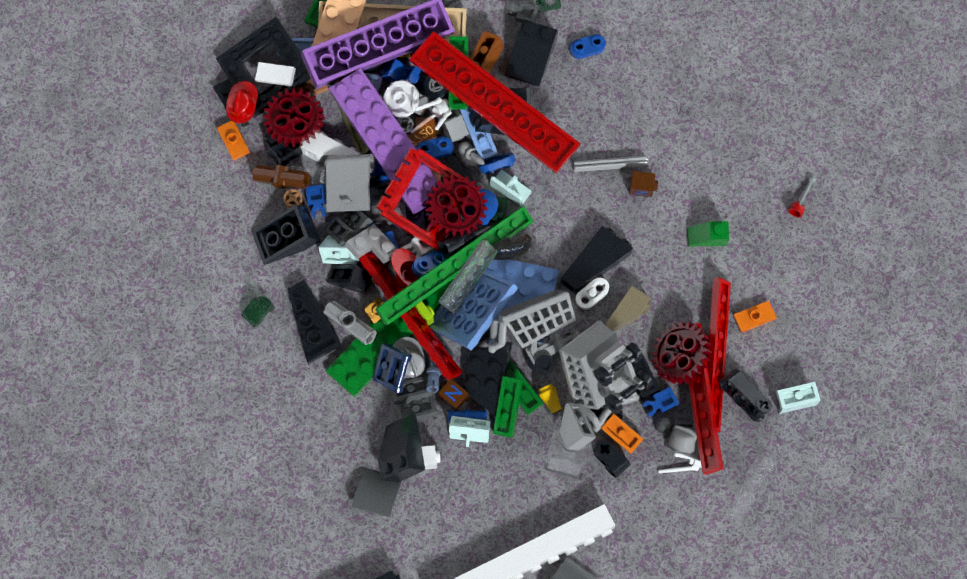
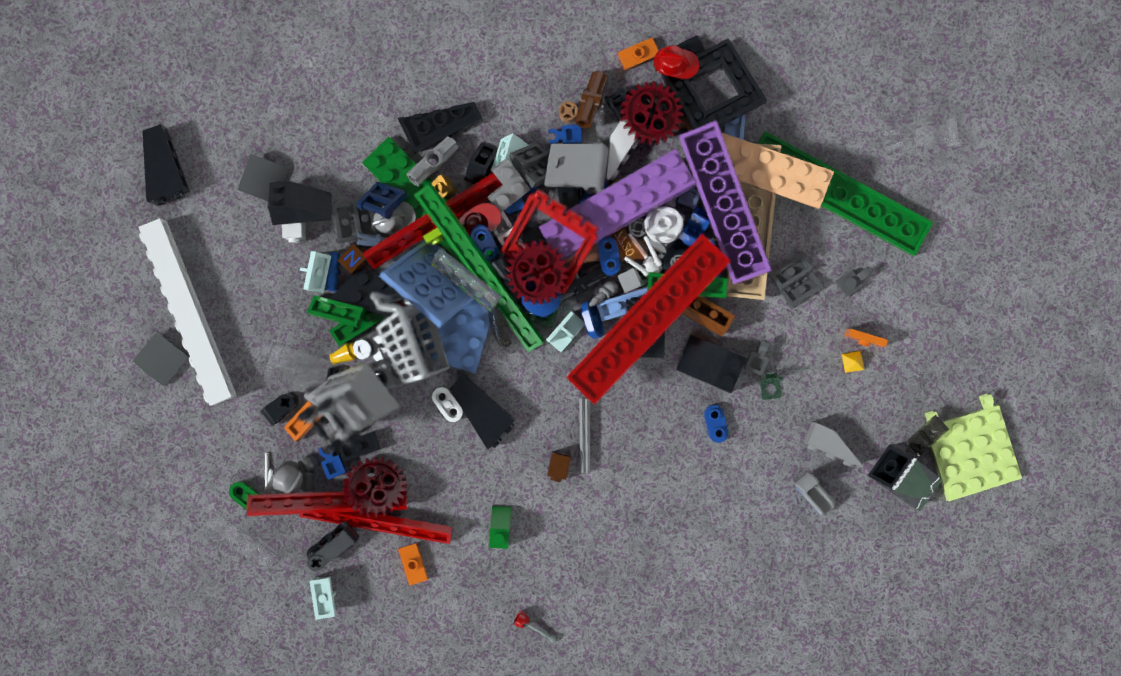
camera: 95 degrees right, 15 degrees up
(257, 310) = (456, 72): clear green bracket -> none
(275, 74) = (701, 96): white tile -> none
(286, 234) = (531, 103): black slope -> none
(575, 427) = (302, 375): light grey slope -> none
(629, 309) = (426, 438): dark tan slope -> none
(705, 486) = (241, 499): none -> green plate

